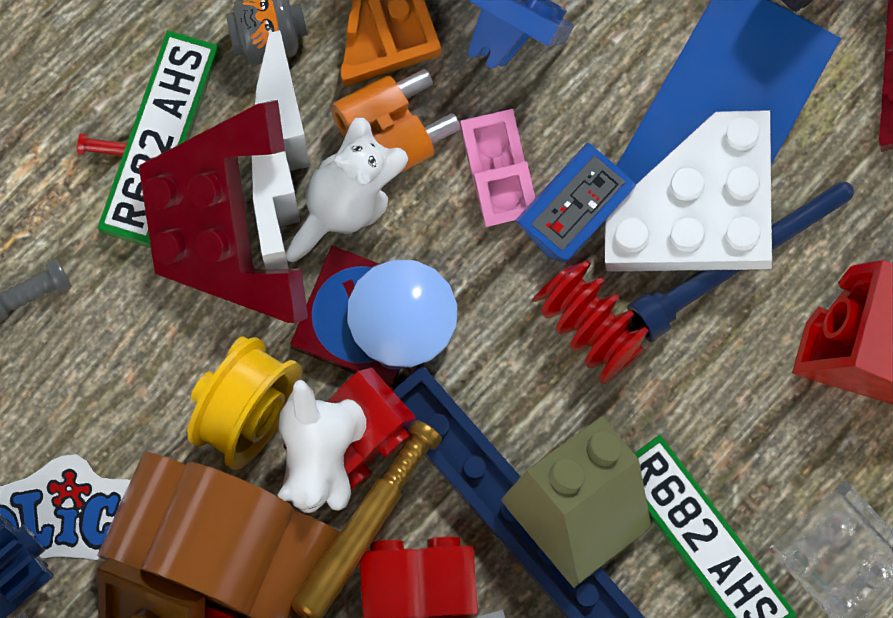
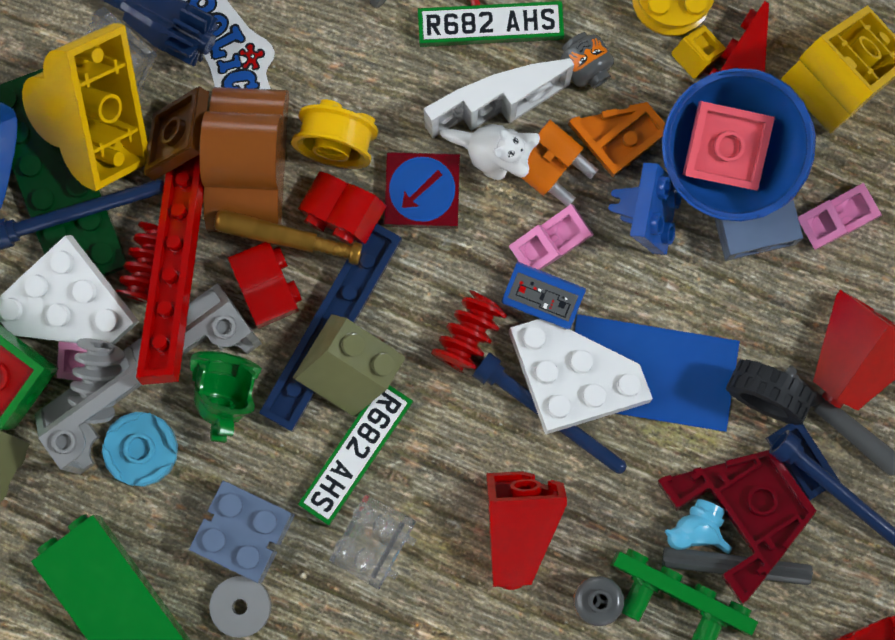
camera: 75 degrees right, 5 degrees up
(201, 219) = (439, 67): dark red wing -> none
(316, 446) = (318, 187): white animal -> none
(402, 313) = (429, 212): light blue dish -> none

